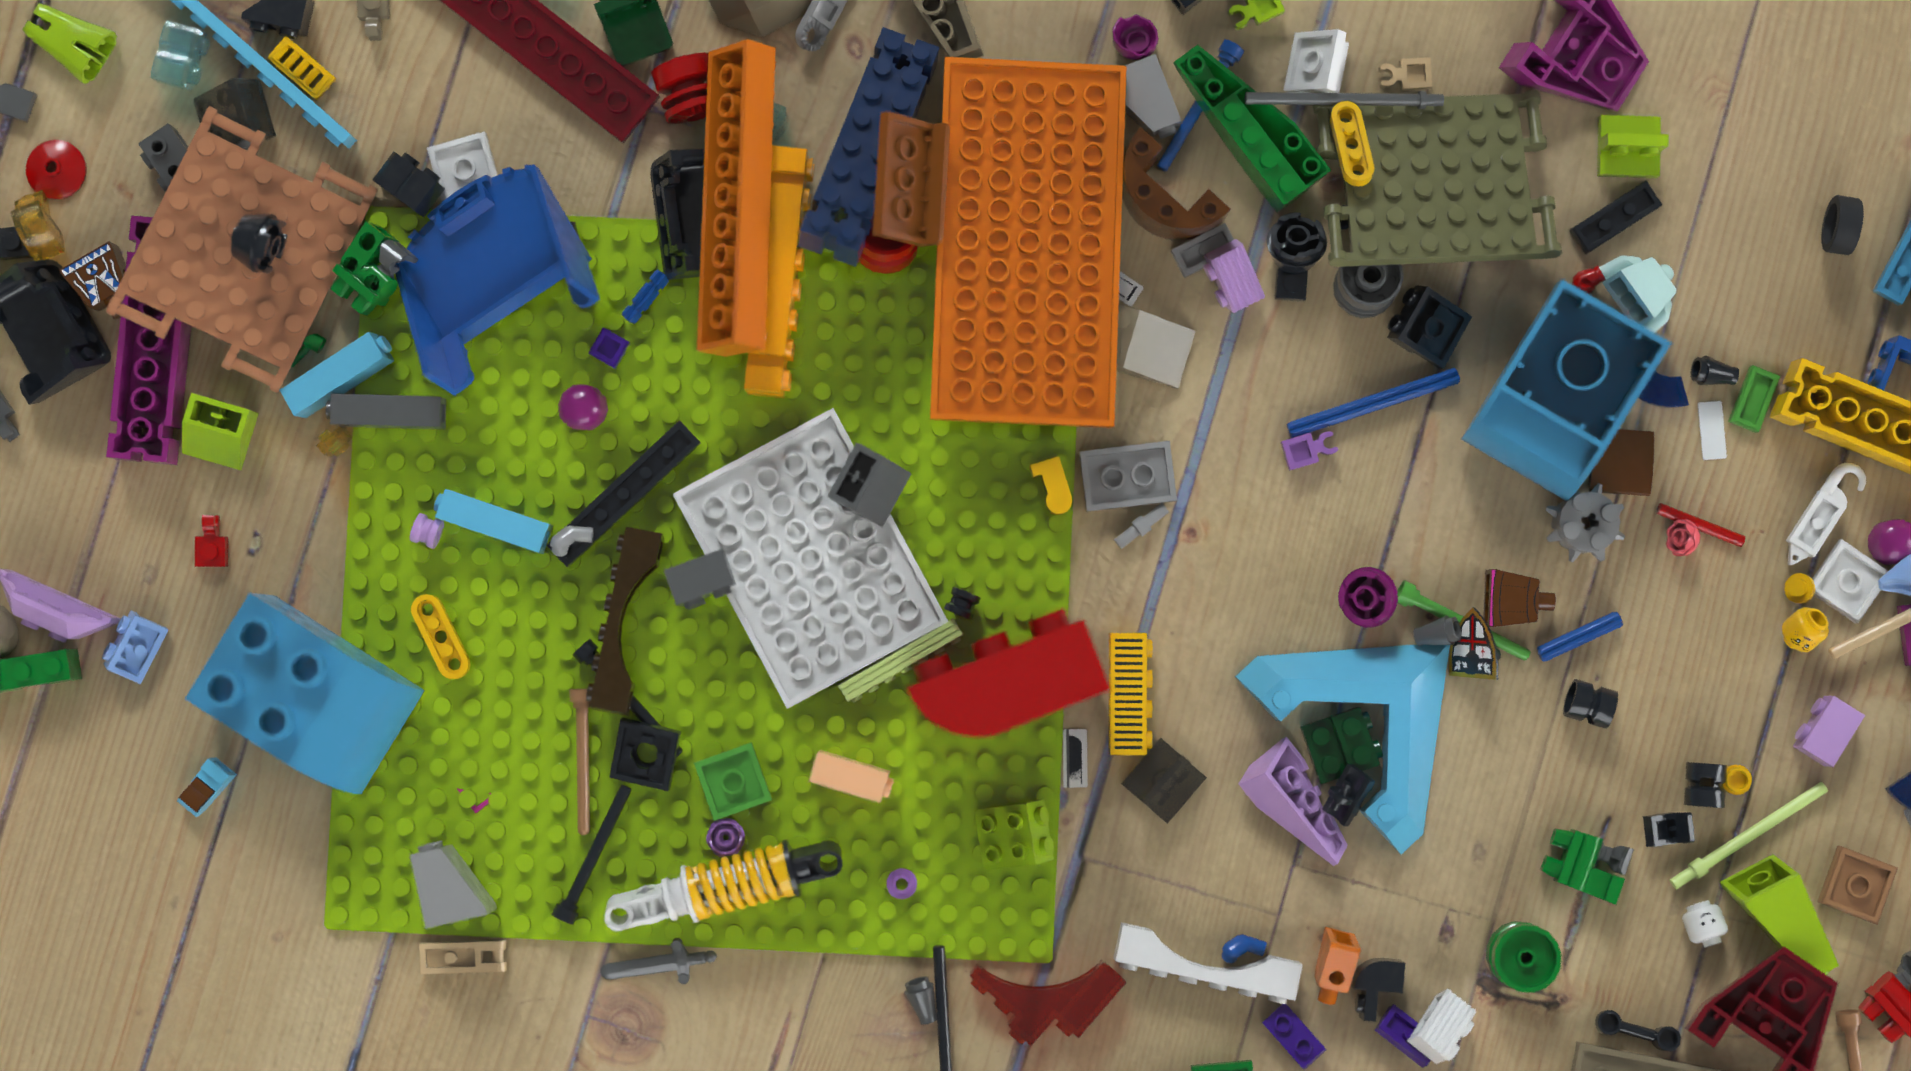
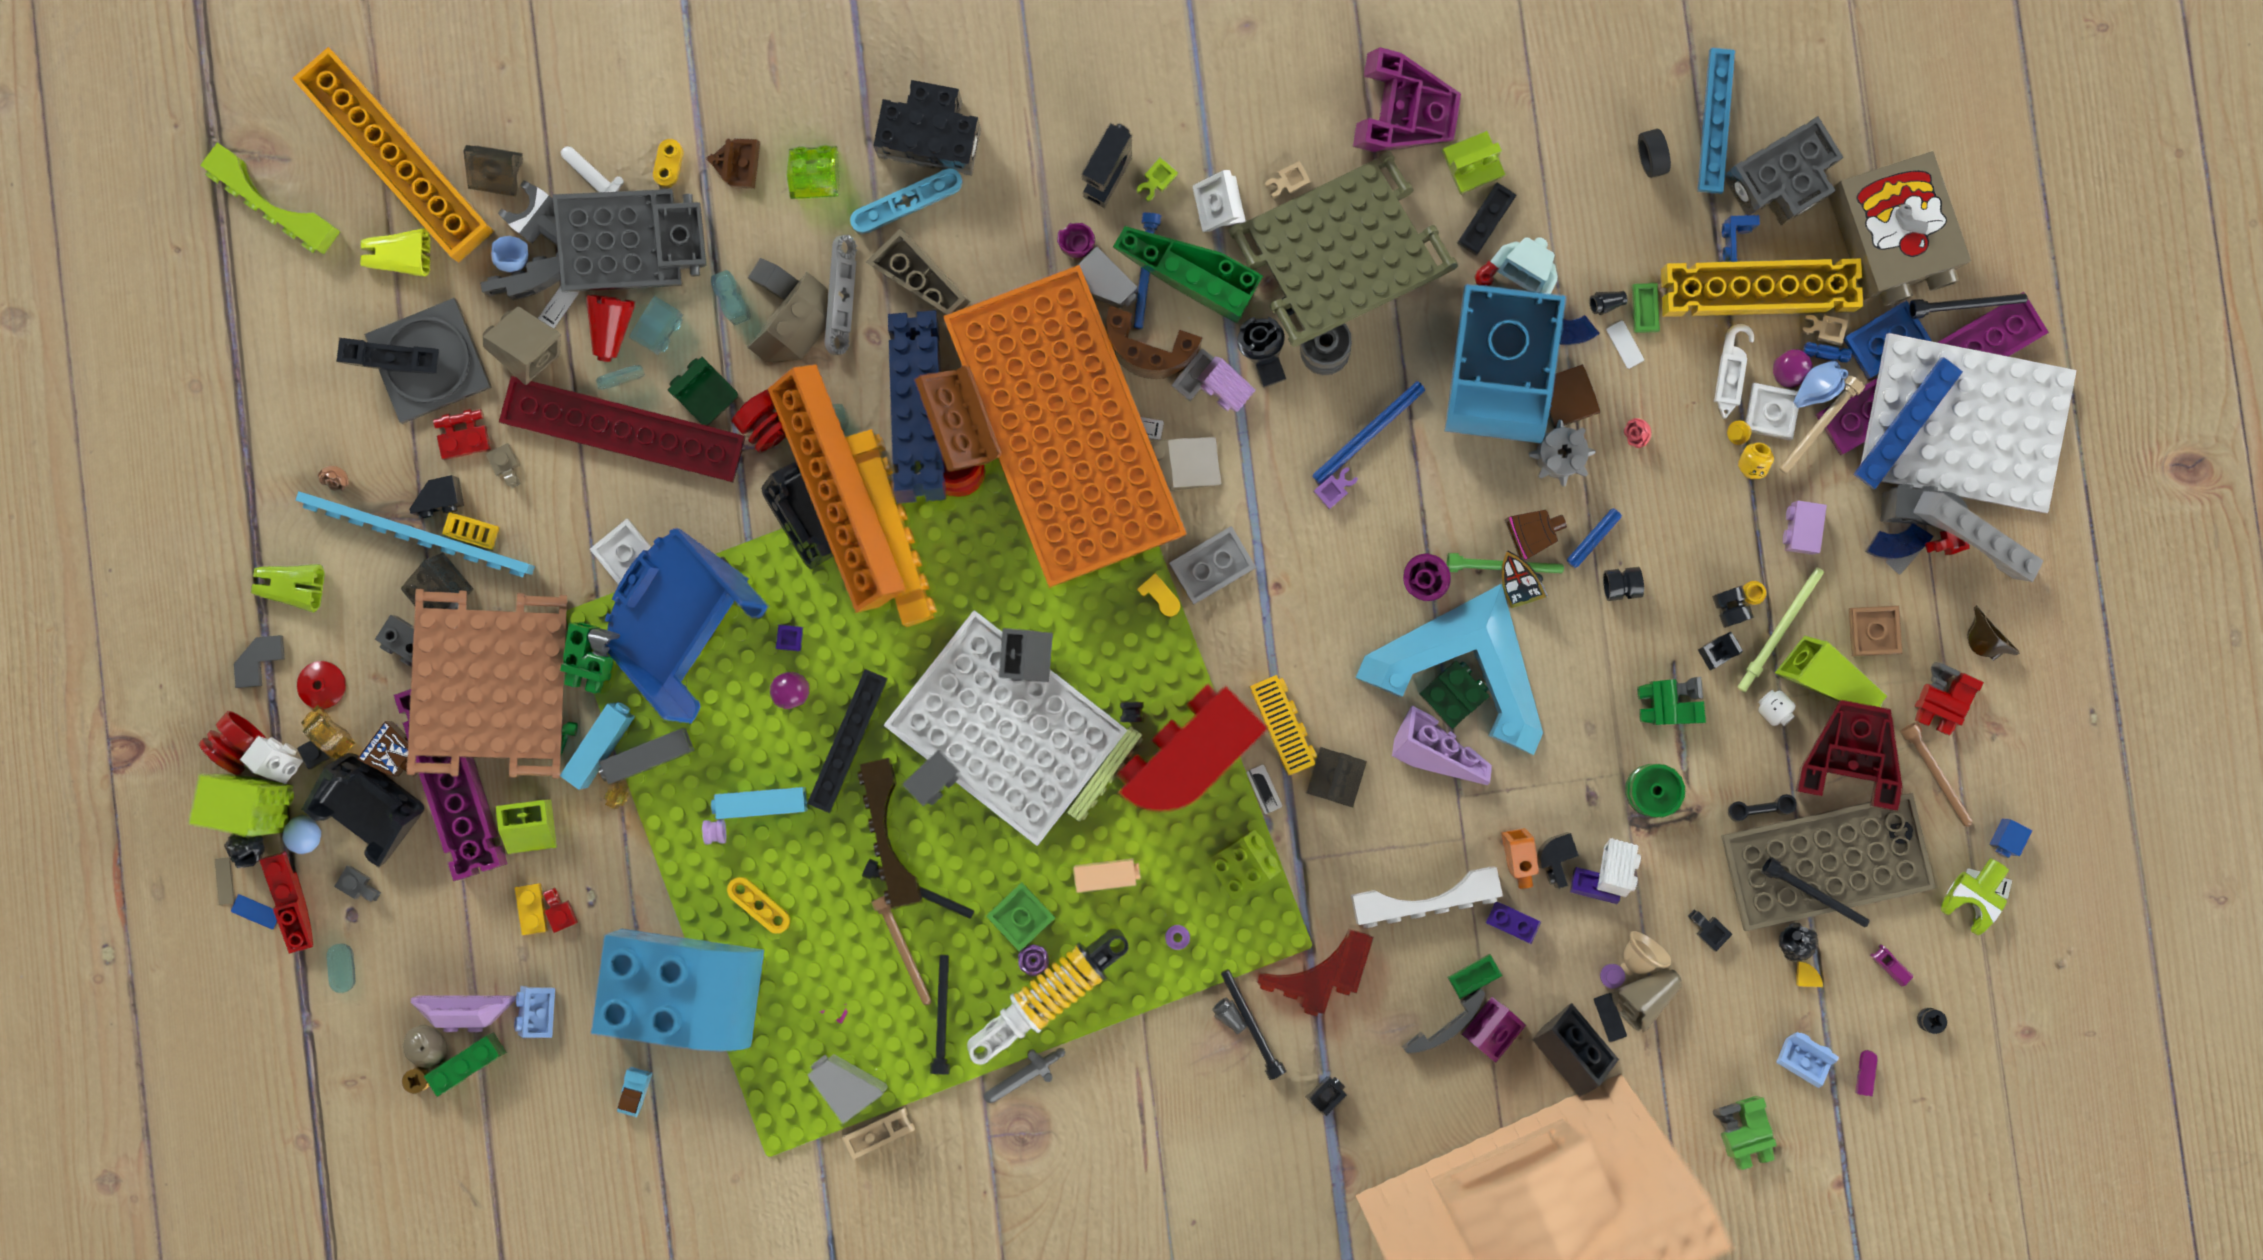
camera: 20 degrees left, 0 degrees up
(179, 55) = (376, 561): clear light blue brick -> none
(181, 528) = (531, 909): none -> yellow plate
(258, 241) = (496, 673): black cone -> none
(408, 183) = (588, 581): black brick -> none
(567, 536) = (820, 789): light grey arm -> none
(630, 768) = (940, 939): black piece -> none
(645, 297) = (799, 588): blue axle -> none
(1141, 526) = (1238, 597): light grey bar -> none
(1240, 945) = (1445, 873): blue arm -> none
(1348, 794) = (1475, 728): black hips -> none
(1355, 134) = (1266, 242): yellow plate -> none
(1420, 100) = (1305, 195): dark grey bar -> none
(1428, 325) = (1384, 358): black plate -> none
(1439, 632) = (1491, 579): dark grey cone -> none
(1702, 525) = (1648, 417): red bar -> none

